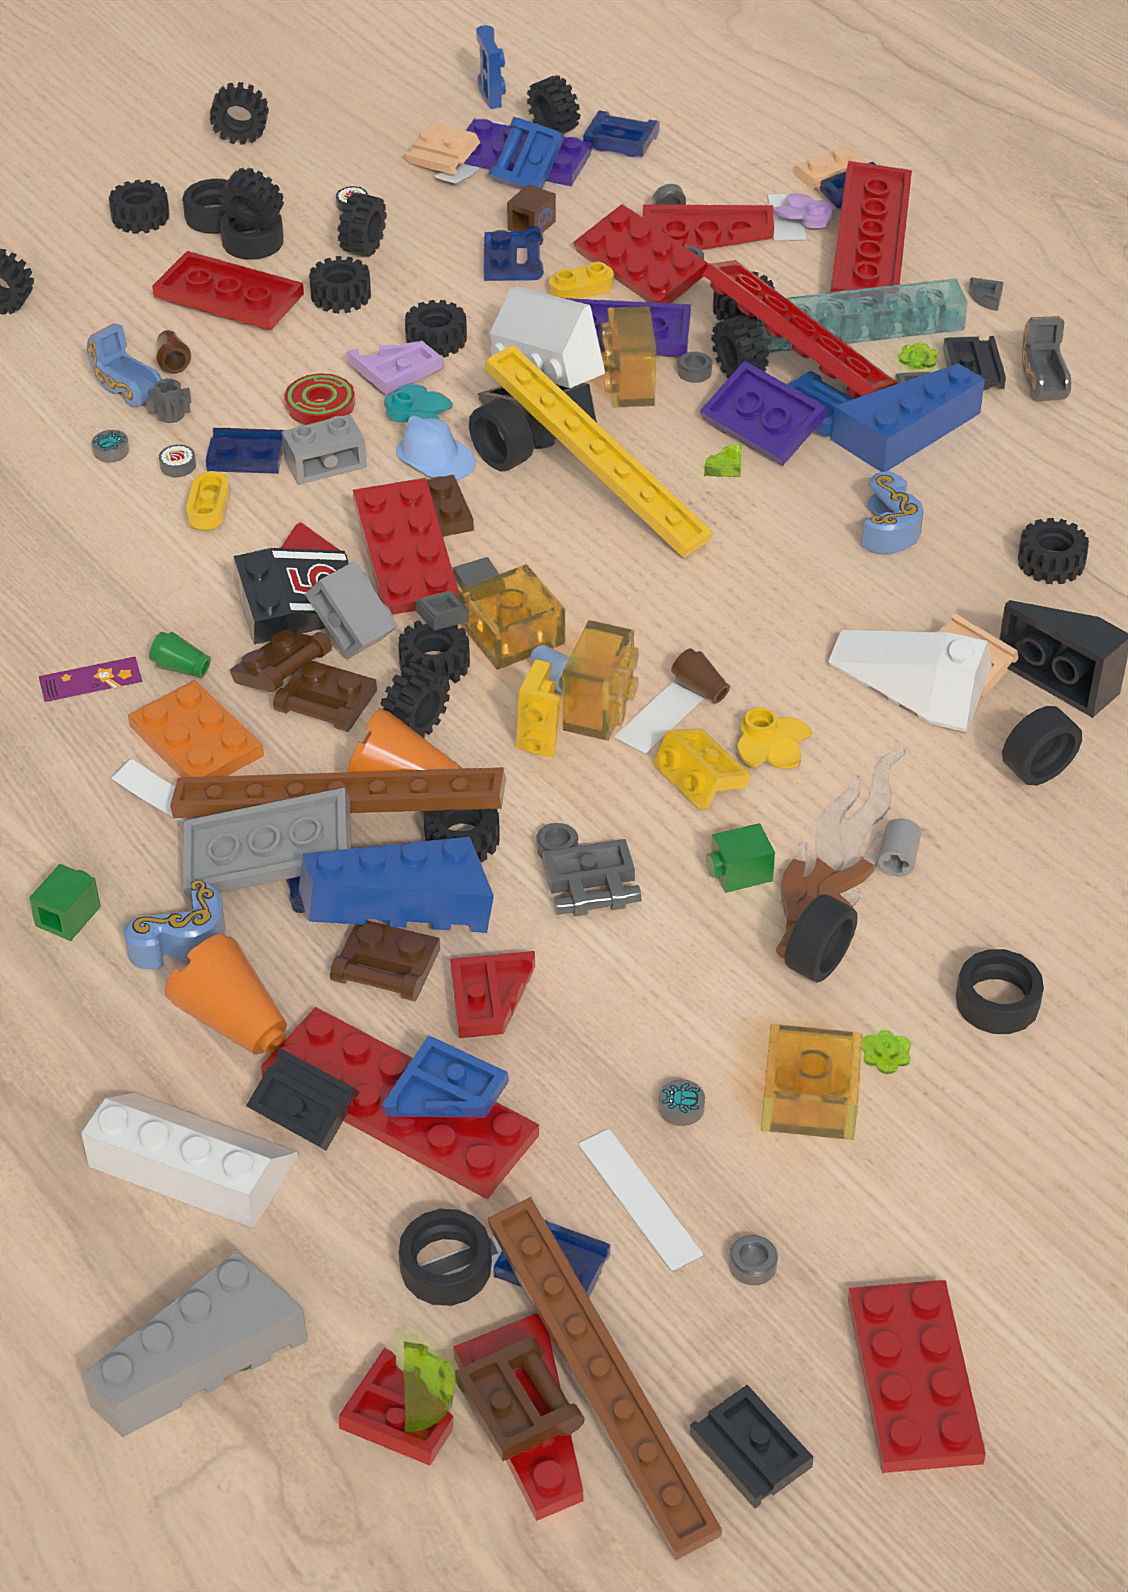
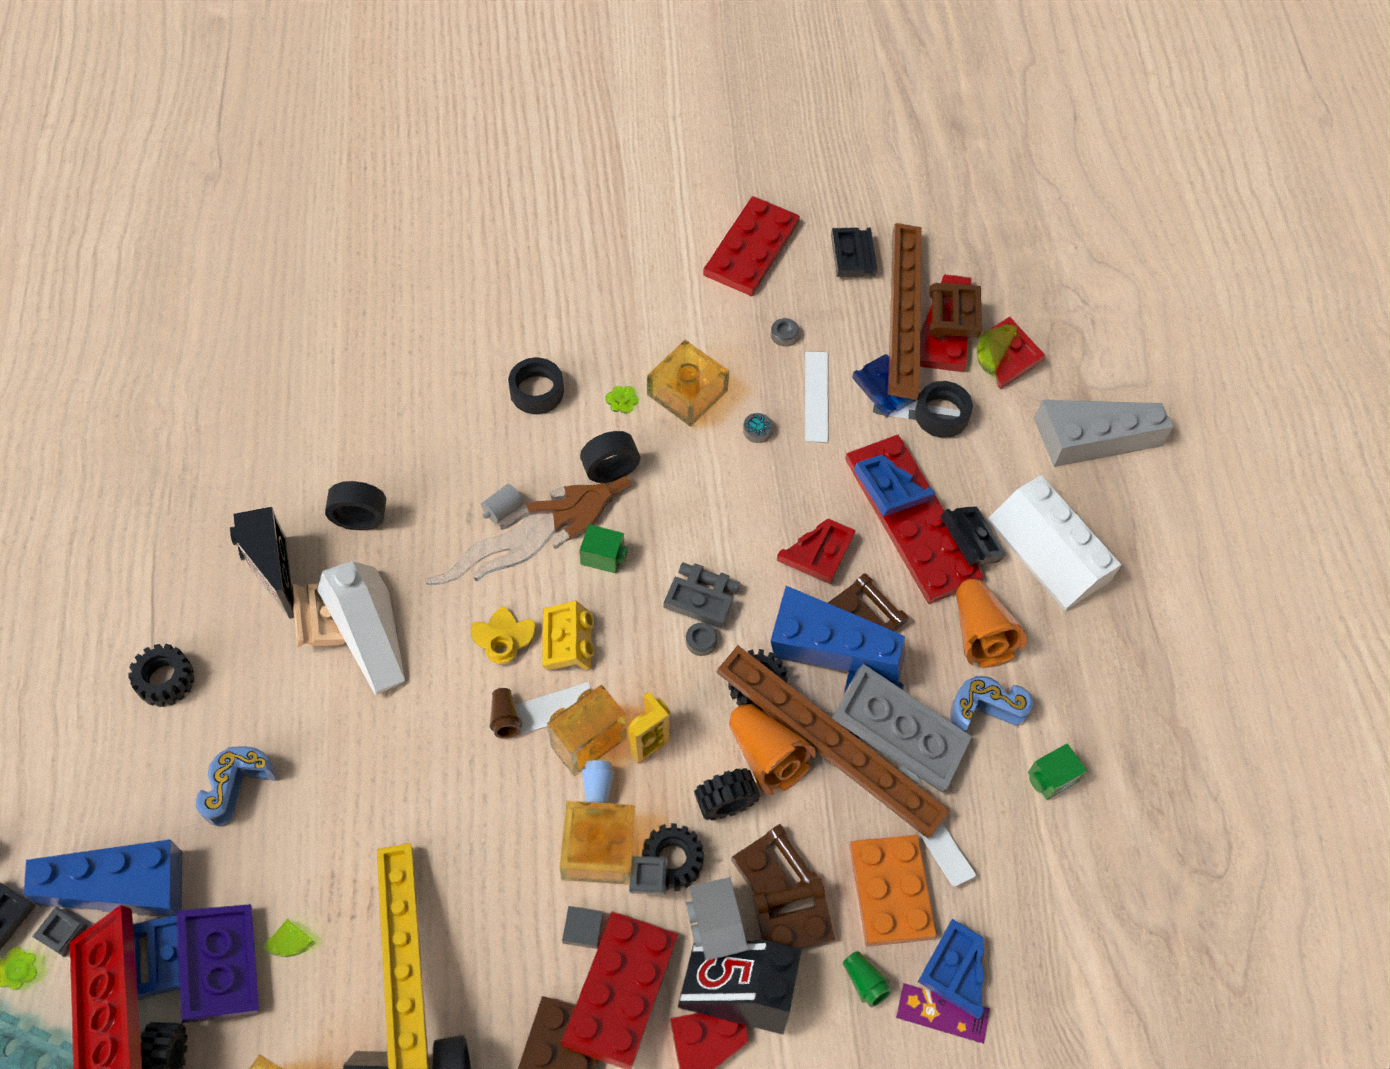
camera: 150 degrees left, 15 degrees up
(92, 701) = (957, 969): none -> blue wing

